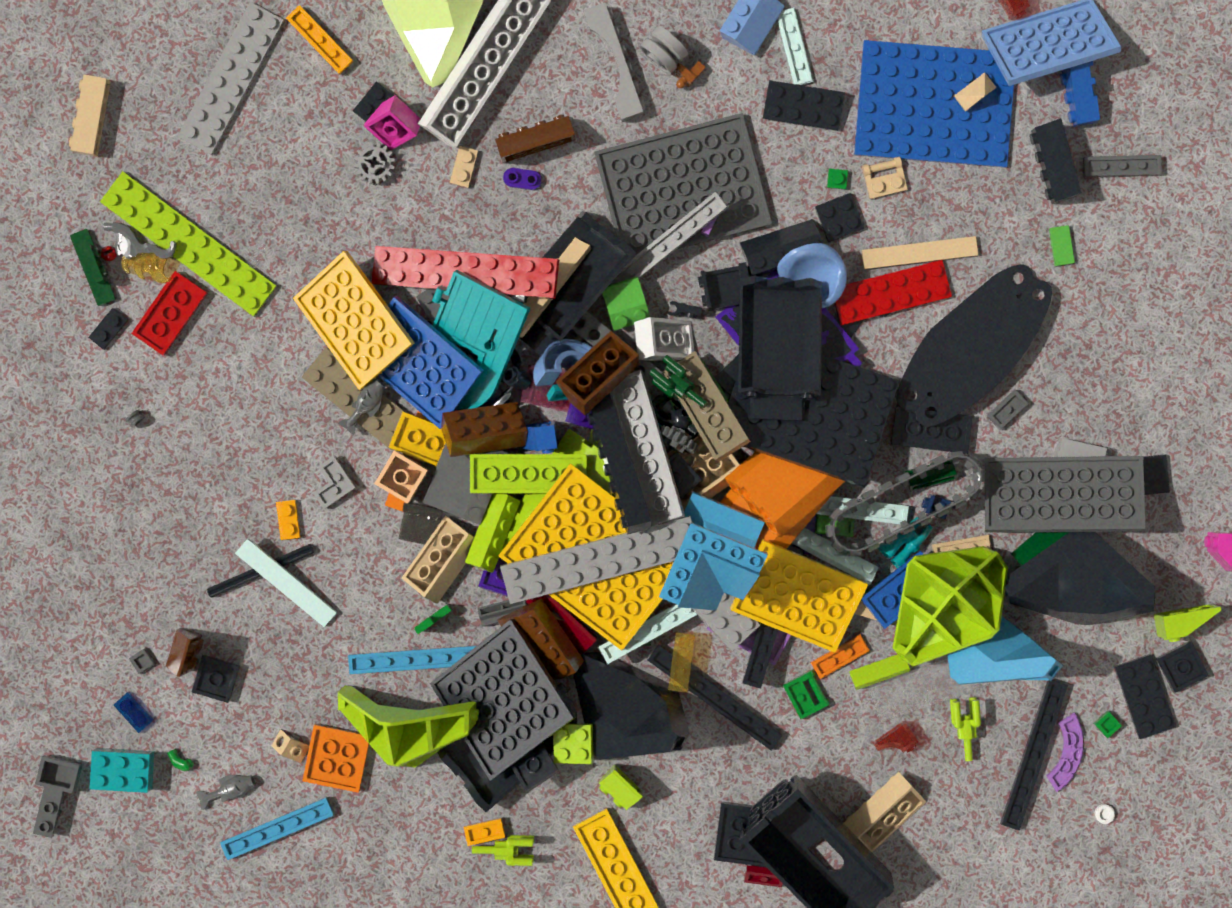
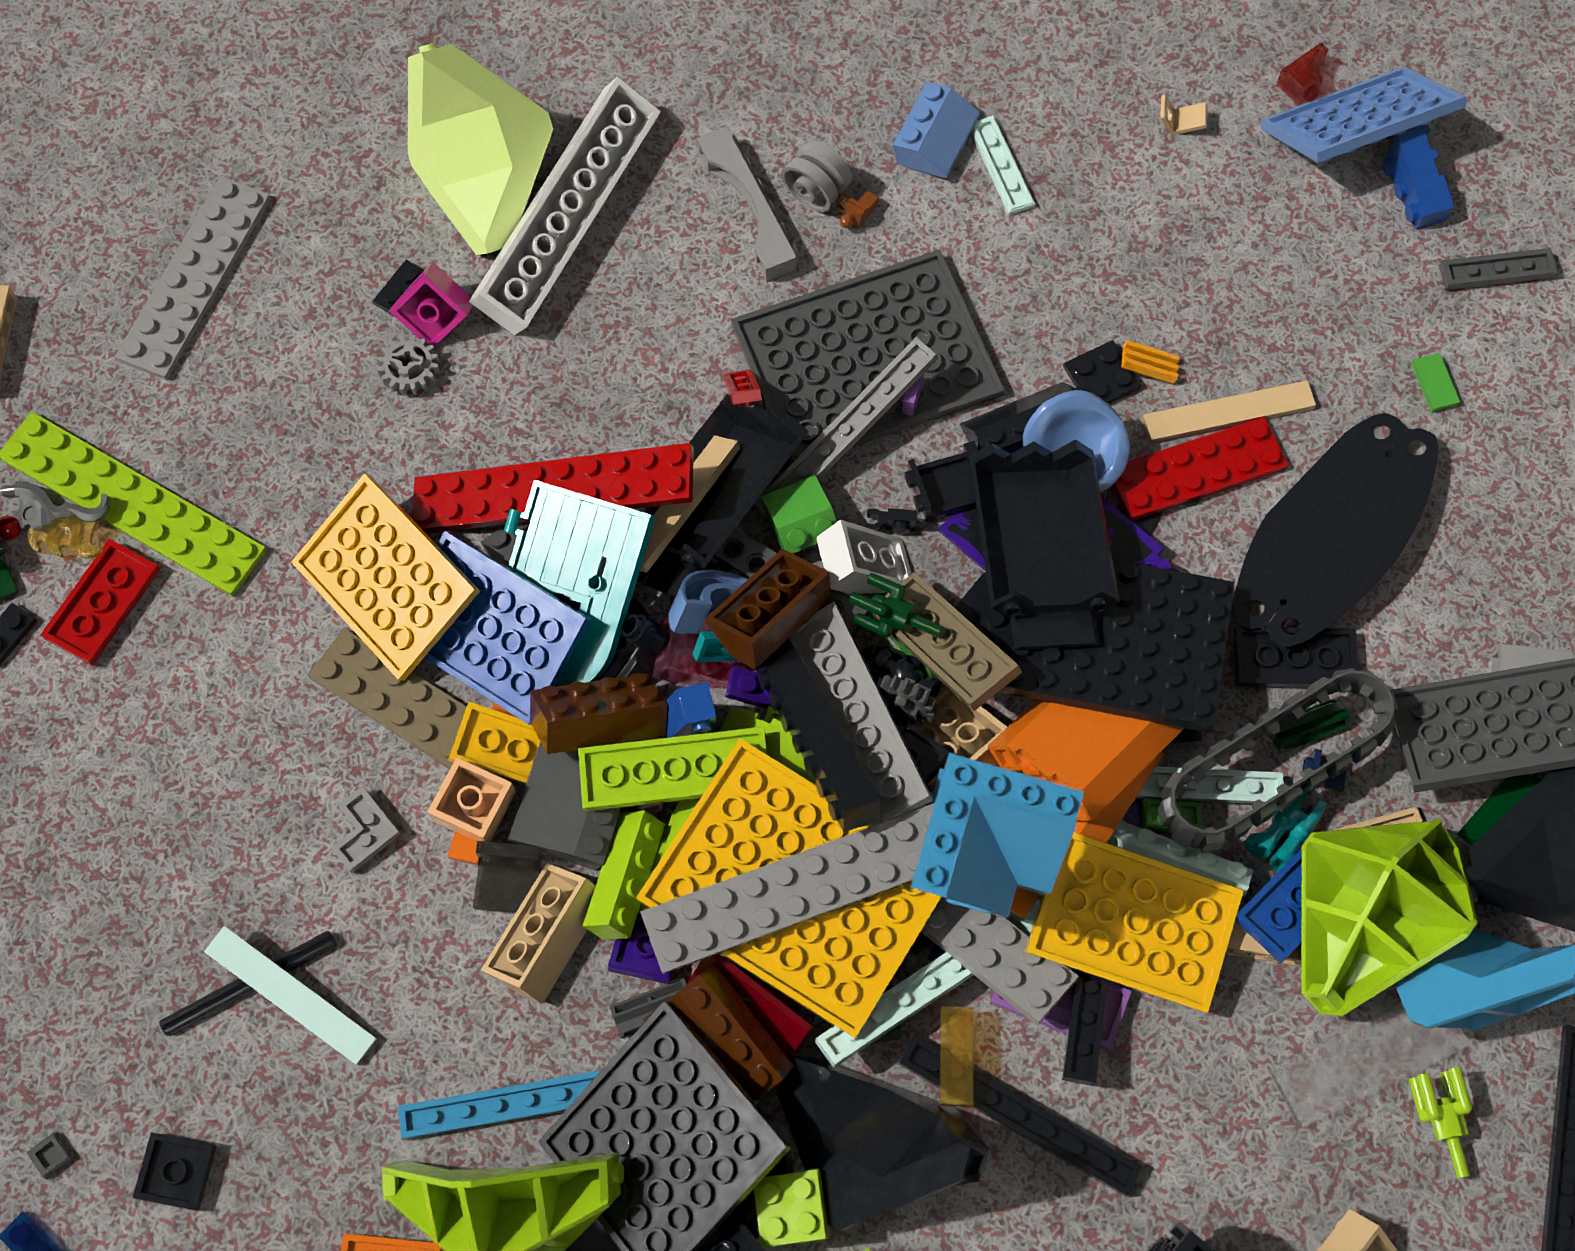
camera: 10 degrees left, 20 degrees down
(135, 418) = (44, 762): dark grey bush -> none
(183, 652) = (121, 1126): reddish brown slope -> none
(288, 519) = (292, 896): light orange plate -> none
(319, 39) = (321, 214): light orange plate -> none
(367, 402) = (412, 697): dark grey animal -> none
(433, 618) = (532, 1031): green tile -> none
(464, 167) = (541, 360): tan plate -> none
(522, 177) = (628, 368): dark purple plate -> none
(535, 139) = (644, 310): reddish brown slope -> none
(596, 208) = (742, 388): none -> red plate
(800, 697) = (1162, 1100): green plate -> none
(803, 105) = (1026, 233): black plate -> none
(837, 179) = (1090, 325): green plate -> none
(844, 654) = (1215, 1026): orange tile -> none
(873, 205) = (1150, 357): none -> light orange tile
(878, 671) = (1284, 1042): lime tile -> none
(885, 184) = (1163, 325): tan plate -> none
(898, 737) = (1339, 1150): clear red arch -> none
(912, 110) = (1212, 218): blue plate -> none
(927, 24) = (1185, 118): none -> tan bracket
(975, 91) = (1267, 192): tan slope -> none
(1007, 409) = (1405, 616): dark grey plate -> none
(1055, 161) = (1404, 267): black slope -> none

